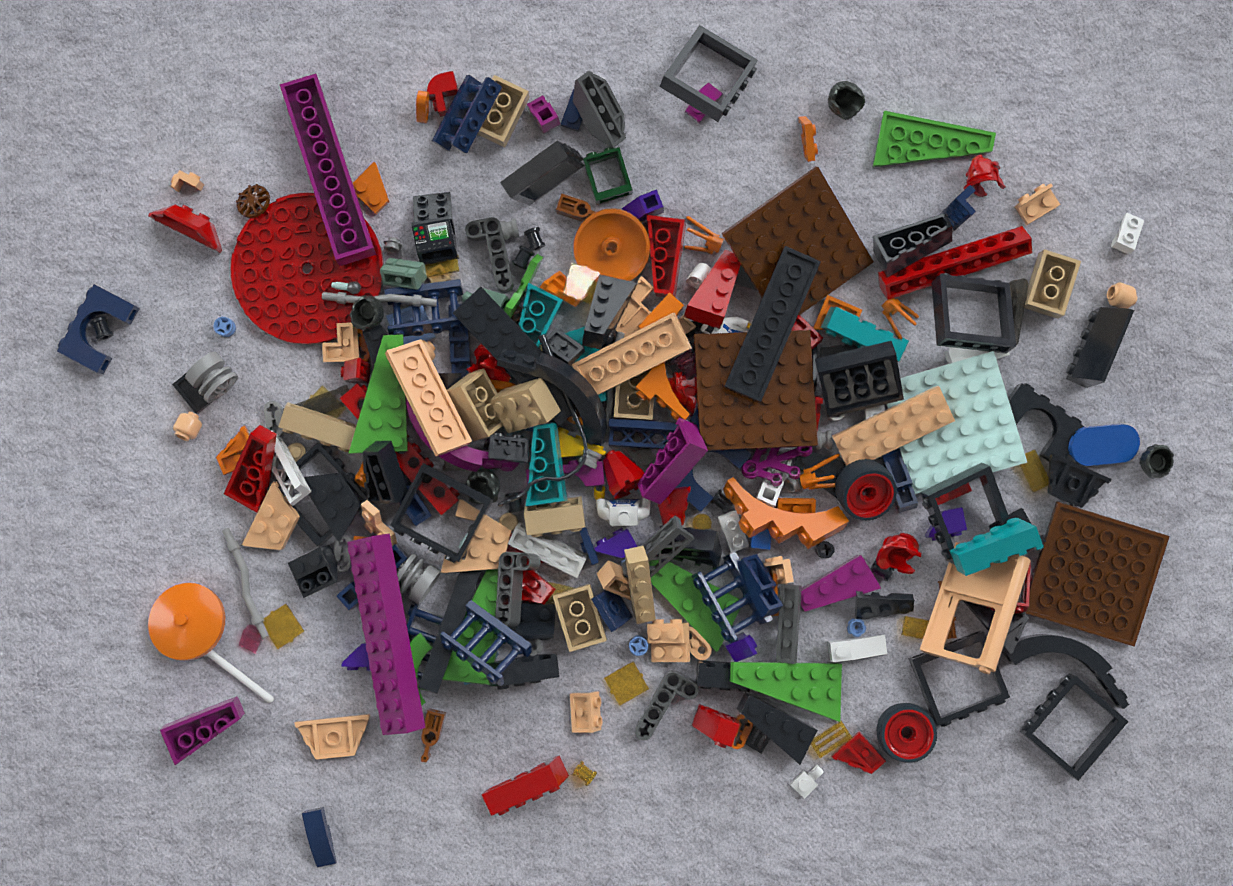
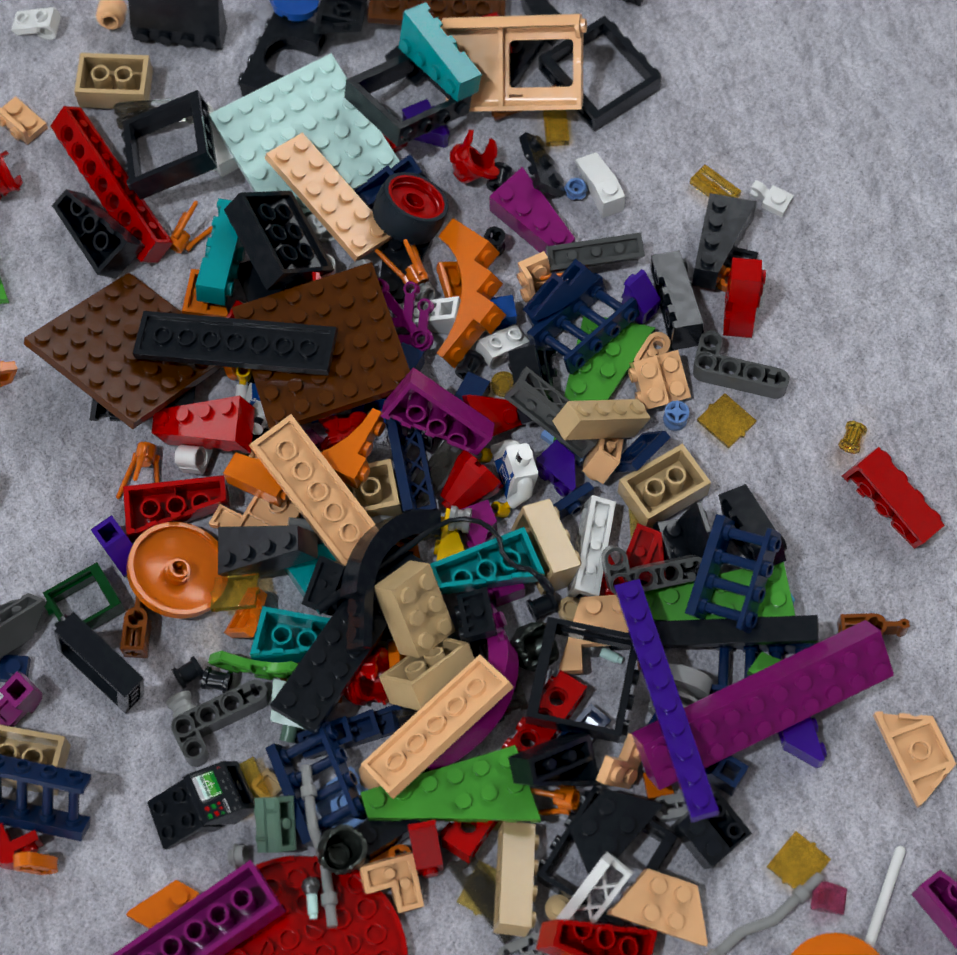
camera: 105 degrees left, 20 degrees down
(400, 562) = (666, 701): none -> dark purple plate
(585, 712) = (778, 455): light nougat bracket -> none
(800, 684) = (664, 222): bright green wing -> none
(860, 754) = (721, 151): red wing -> none
(921, 736) = (680, 107): red wheel -> none
(959, 209) = (37, 181): dark blue fence -> none
(1034, 471) = (343, 51): clear yellow tile -> none

